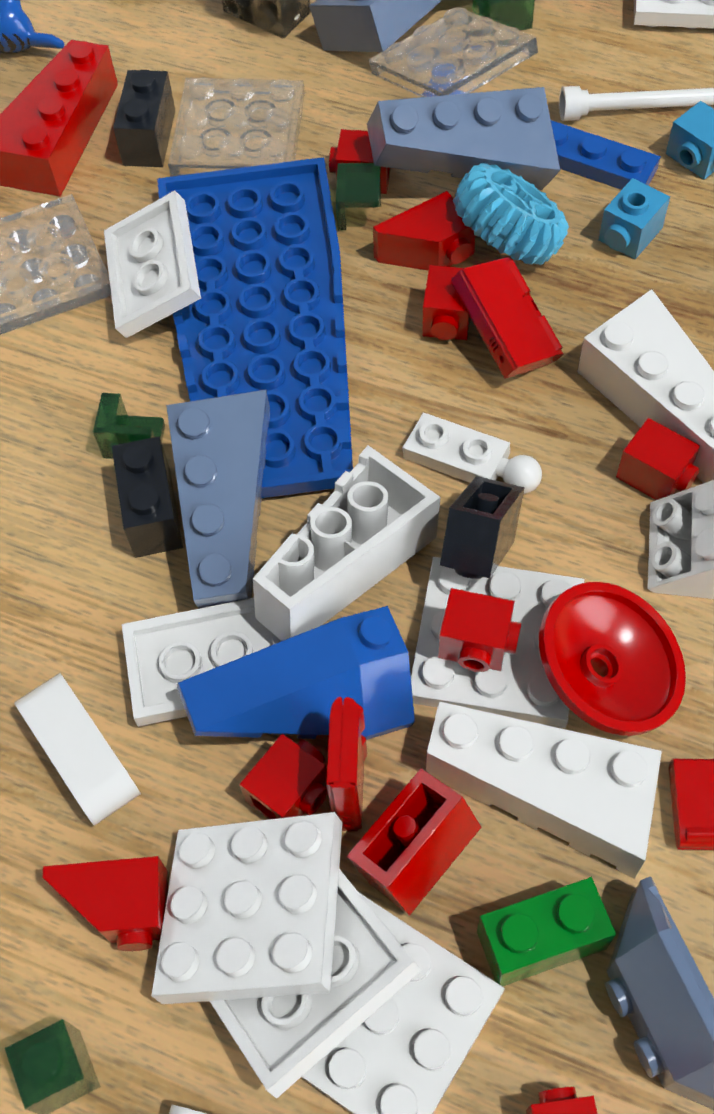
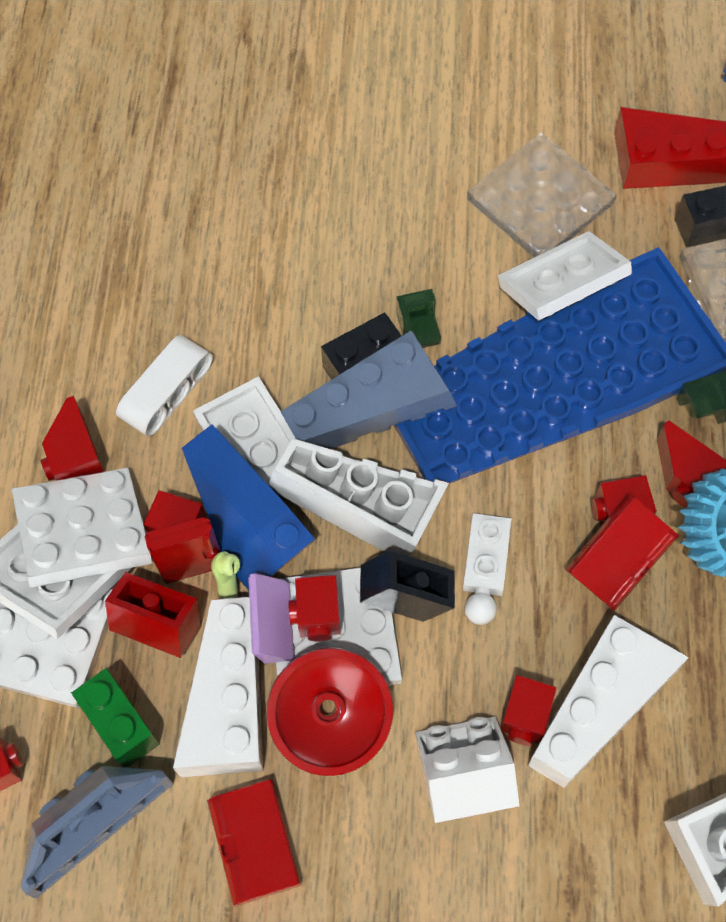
camera: 70 degrees right, 5 degrees up
(386, 738) = (224, 569): none -> yellowish green arm
(470, 691) = (270, 619): none -> lavender slope

